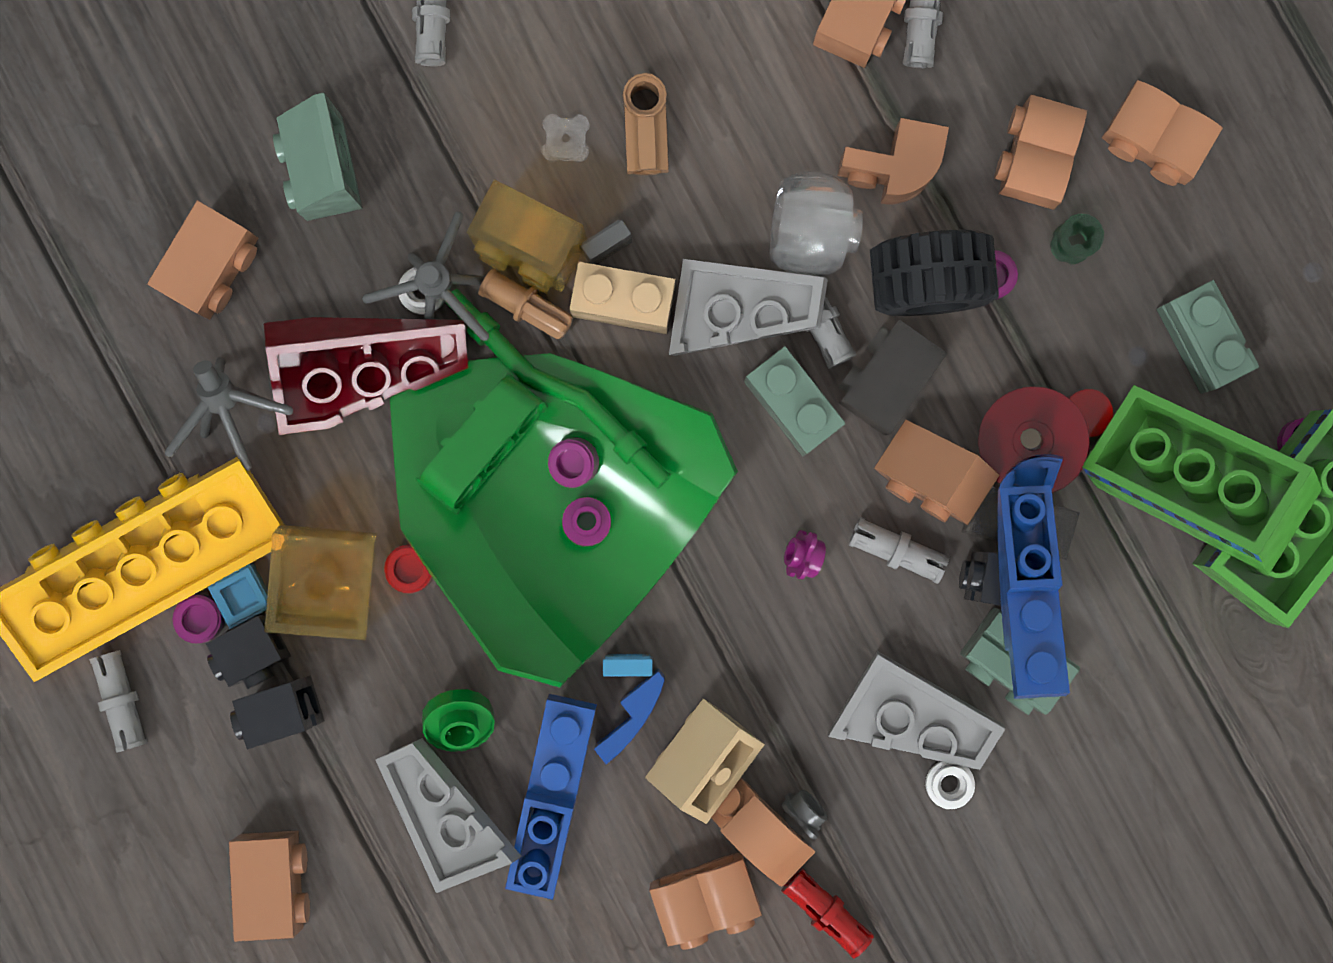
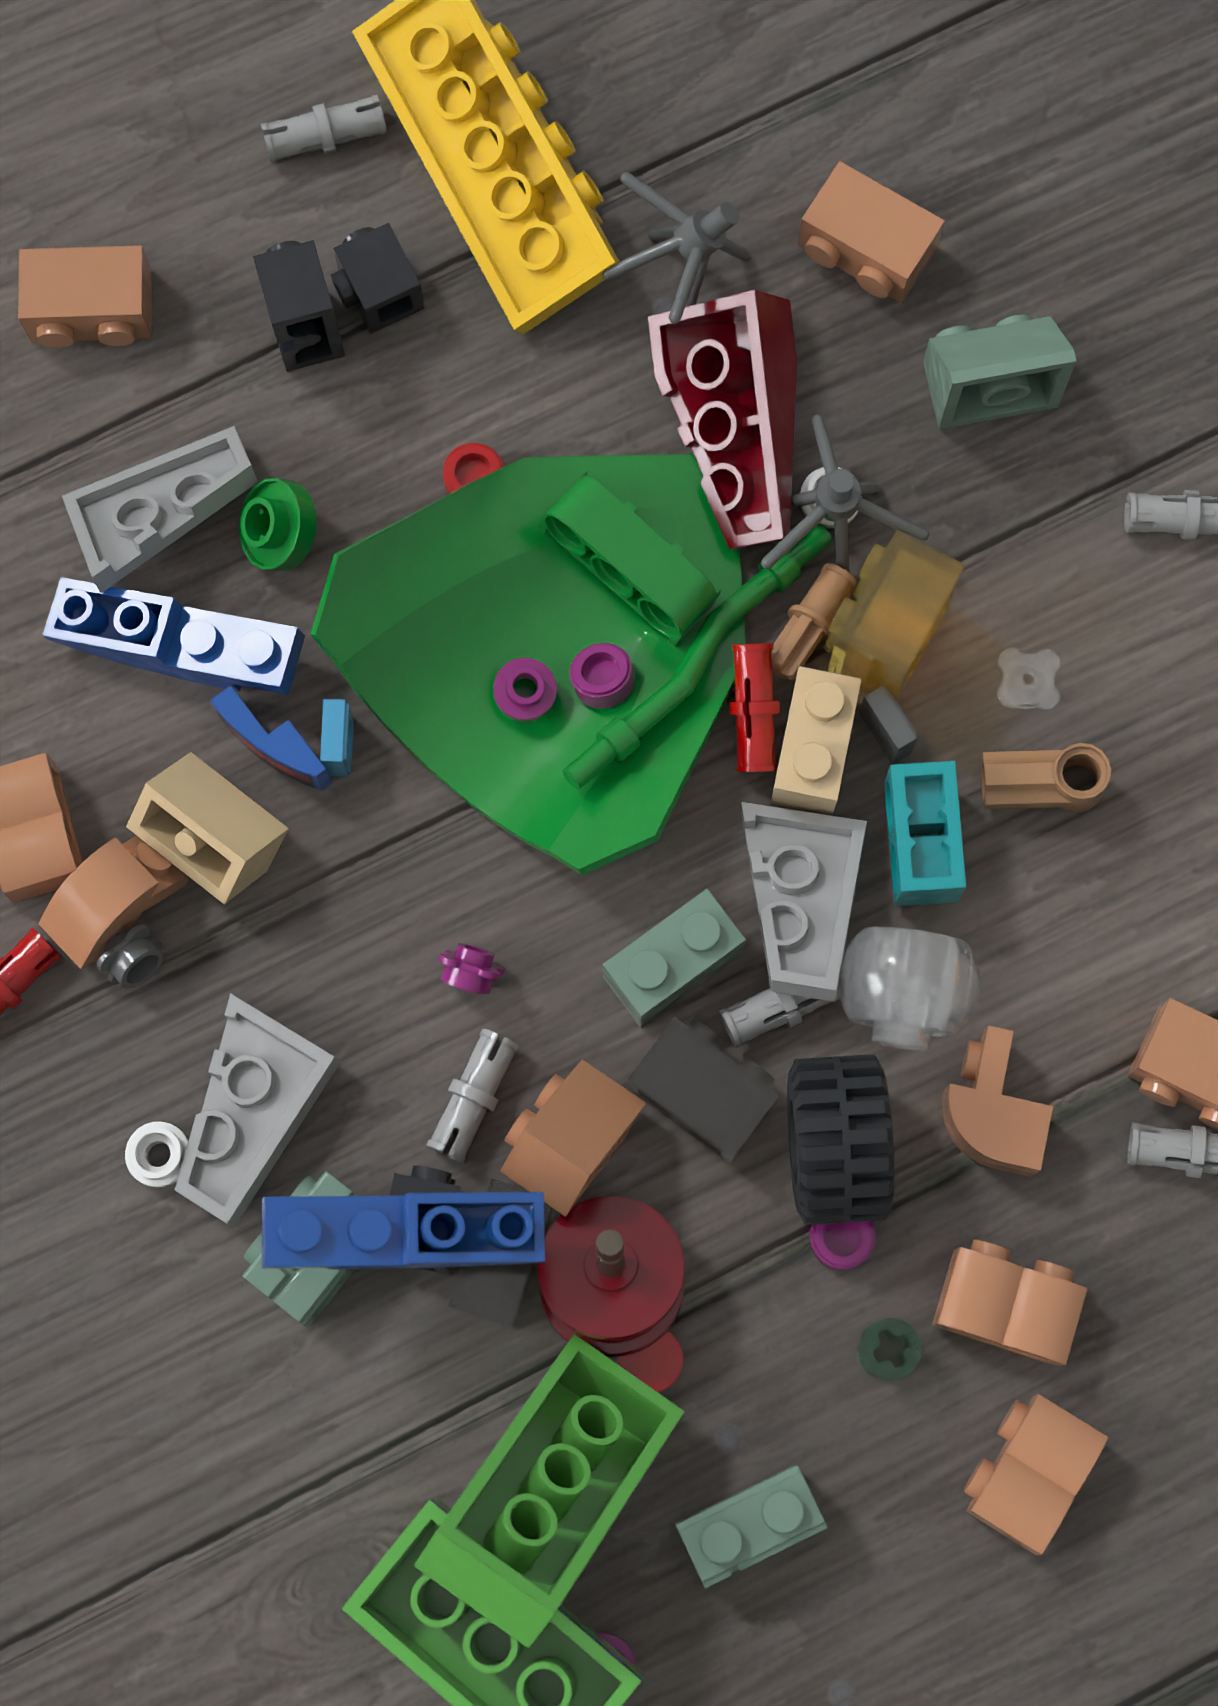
camera: 90 degrees right, 10 degrees down
(198, 619) = (422, 223): magenta tile -> none
(240, 595) = (448, 274): dark azure tile -> none
(320, 582) = (459, 359): clear yellow brick -> none
(596, 345) = (754, 707): none -> red pin
(695, 214) = (924, 833): none -> teal brick
(1033, 471) = (565, 1264): blue tile -> none

